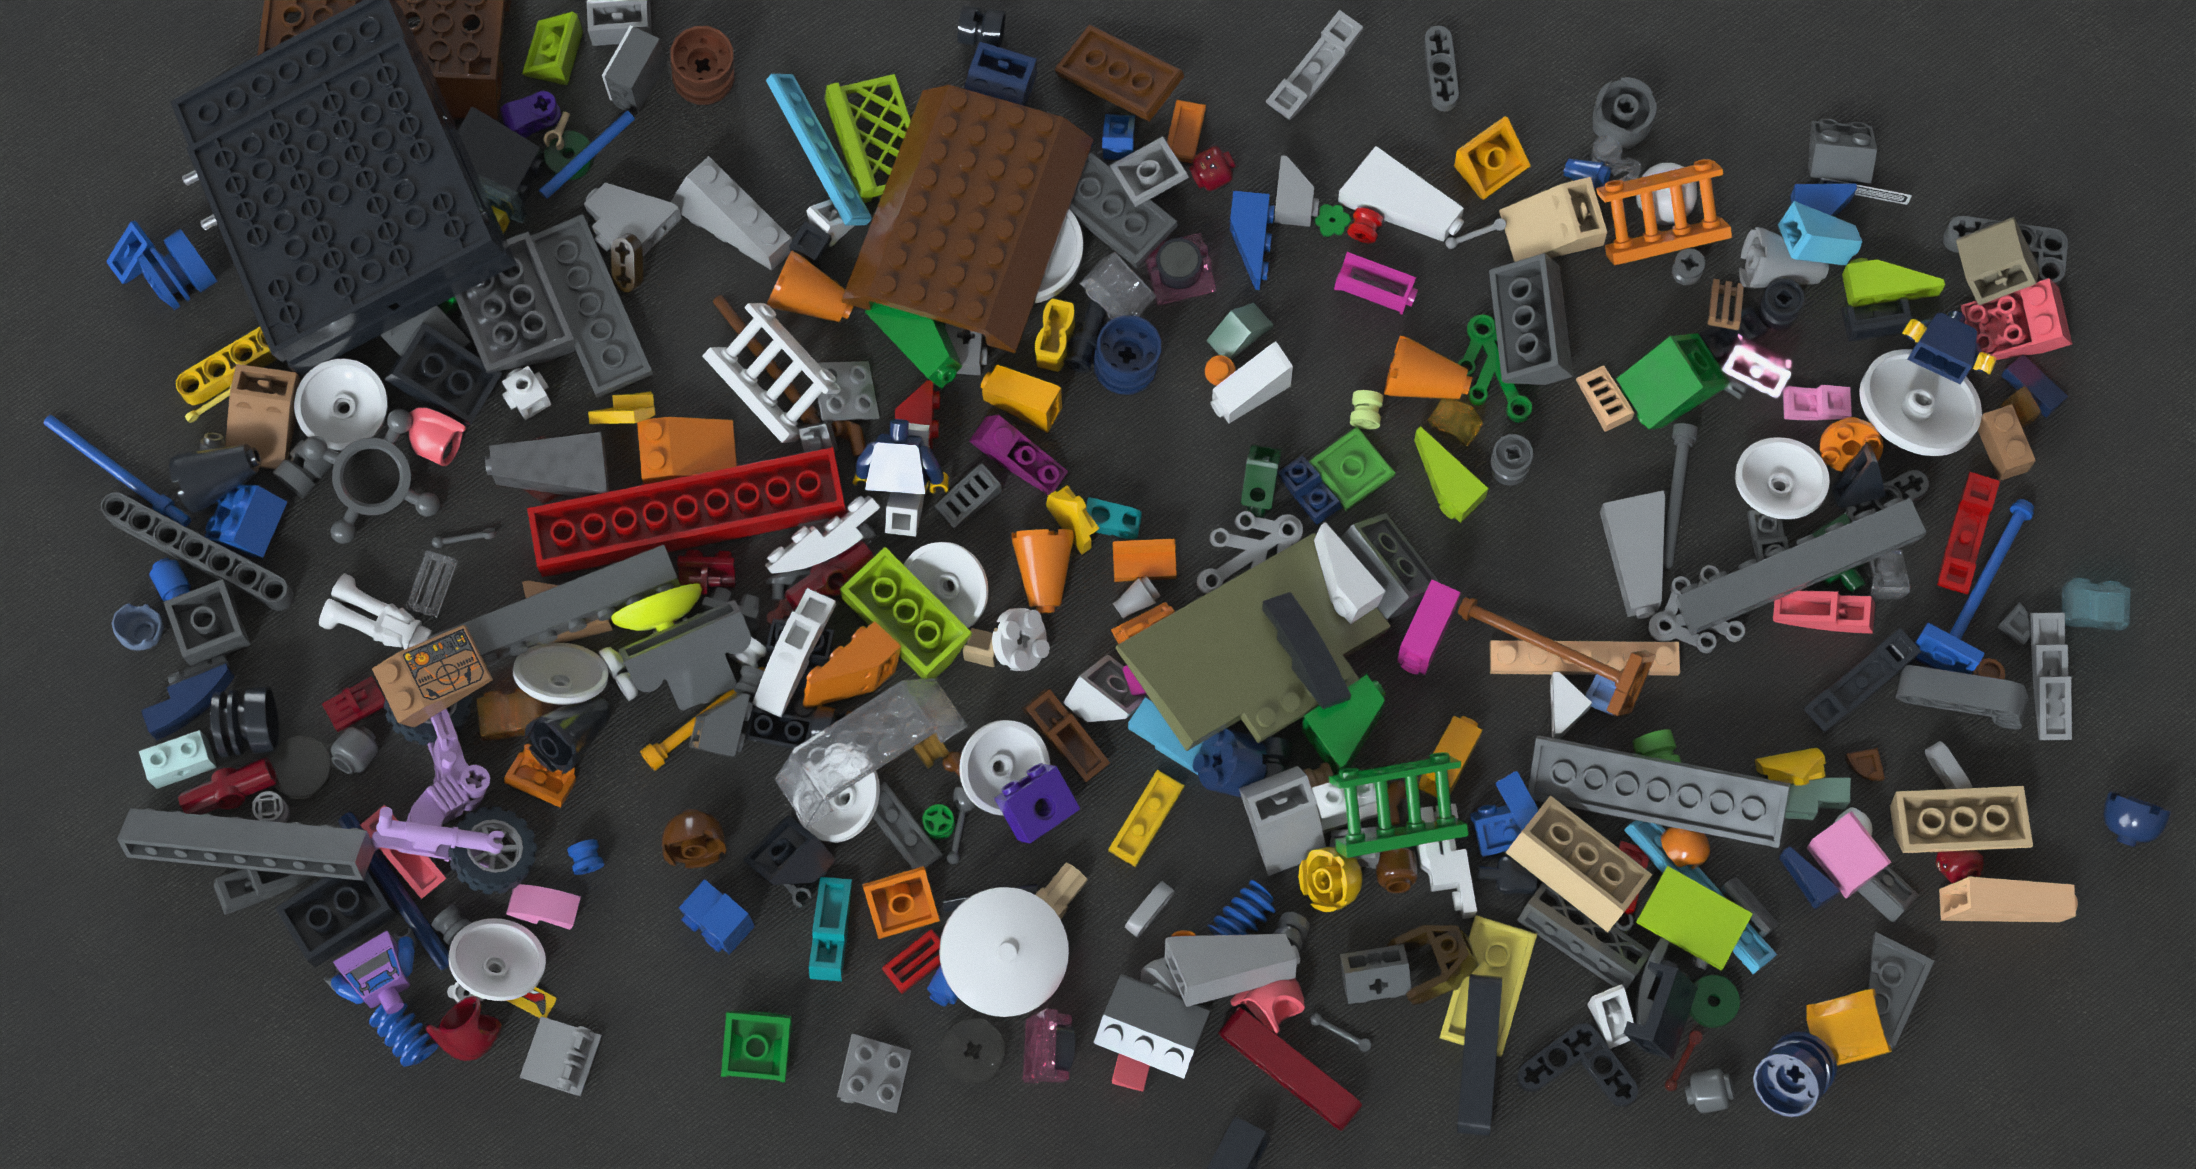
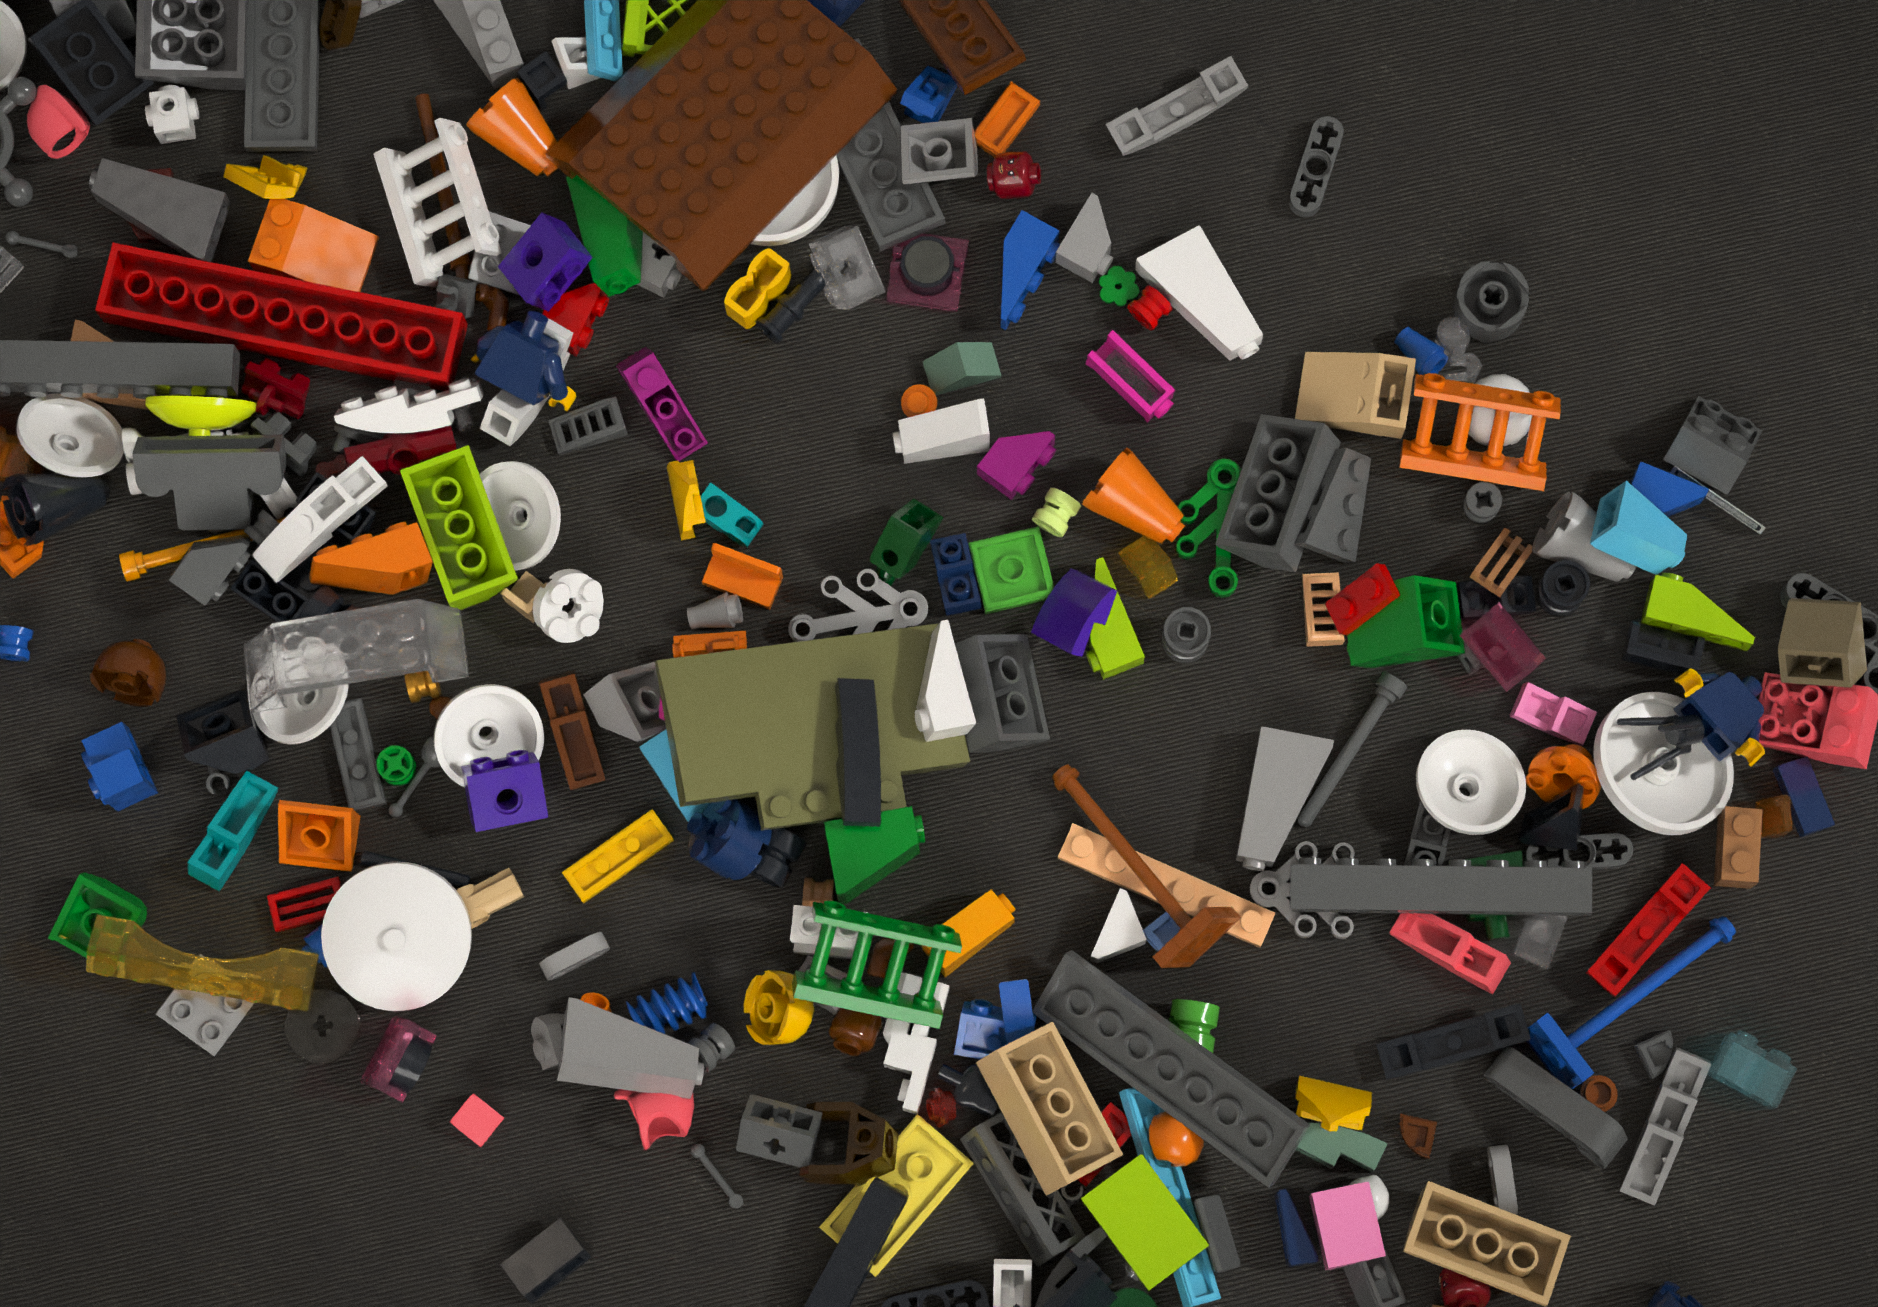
camera: 25 degrees right, 5 degrees up
(799, 1054) = (128, 952): none -> clear yellow arch
(896, 376) = (545, 262): none -> dark purple brick
(1023, 396) = (693, 342): light orange slope -> none
(1043, 565) = (630, 536): orange cone -> none
(1130, 339) = (820, 324): dark blue wheel -> none
(1152, 1026) = (515, 1084): dark grey slope -> none
(1283, 819) = (755, 922): light grey slope -> none
(1290, 1069) = (643, 1192): dark red beam -> none
(1314, 383) = (1013, 461): none -> magenta slope
(1416, 477) = (1072, 610): none -> dark purple slope
(1428, 628) = (1007, 781): dark pink brick -> none
(1491, 158) = (1322, 292): light orange slope -> none
(1492, 901) = (941, 1107): none -> clear red plate
(1498, 225) = (1296, 368): light grey hinge -> none
(1583, 315) = (1339, 512): none -> dark grey wing
(1636, 373) = (1362, 599): none -> red plate
(1921, 372) = (1678, 731): none -> black plant

